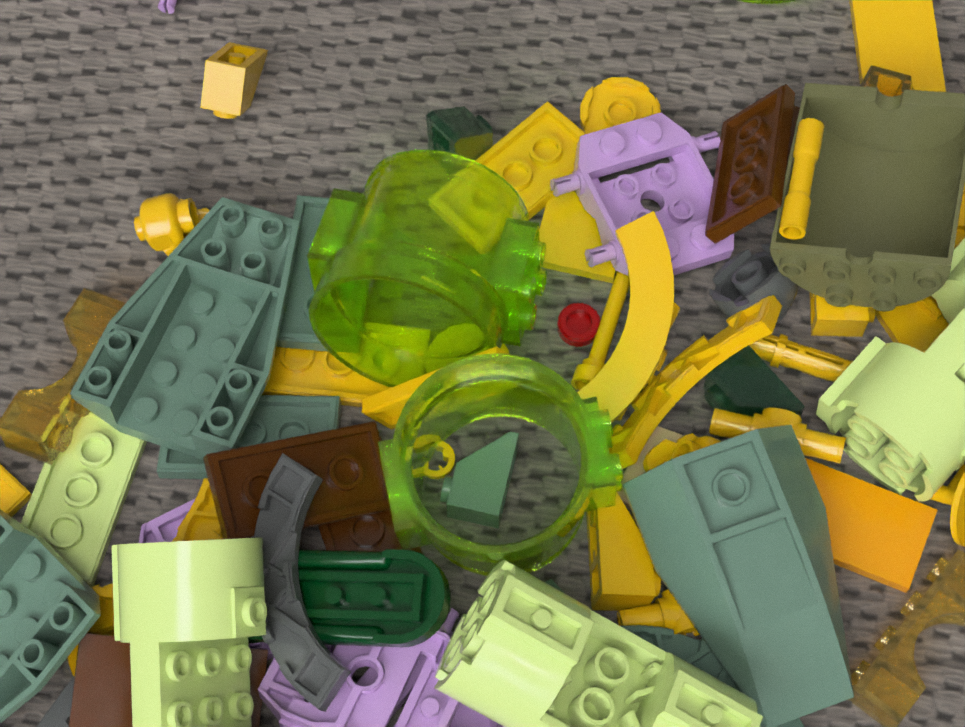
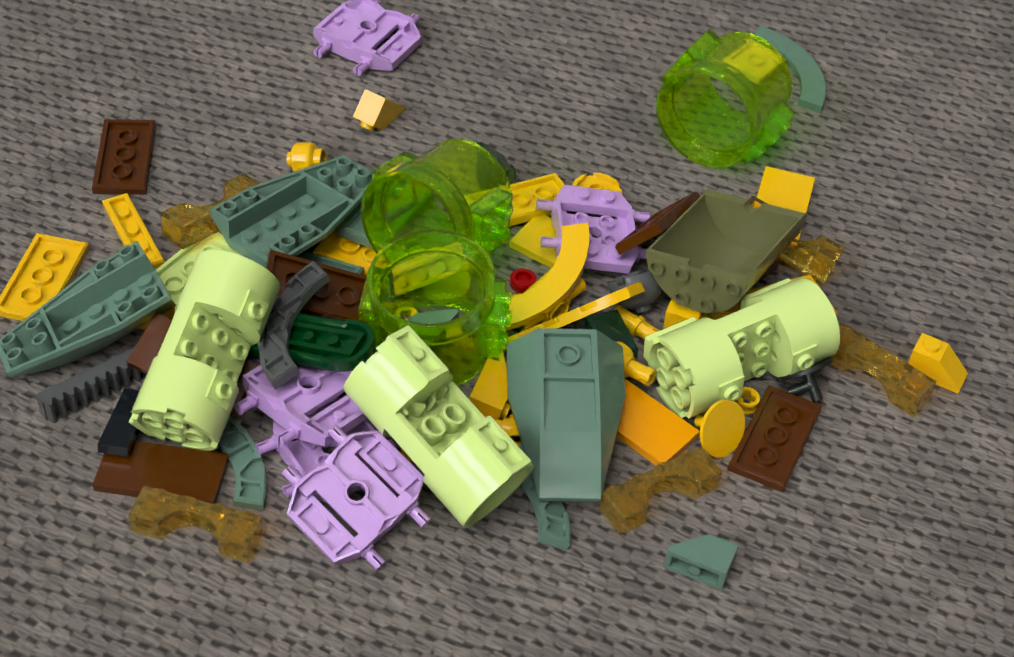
camera: 15 degrees right, 20 degrees down
(798, 201) = (673, 231): yellow piece -> none

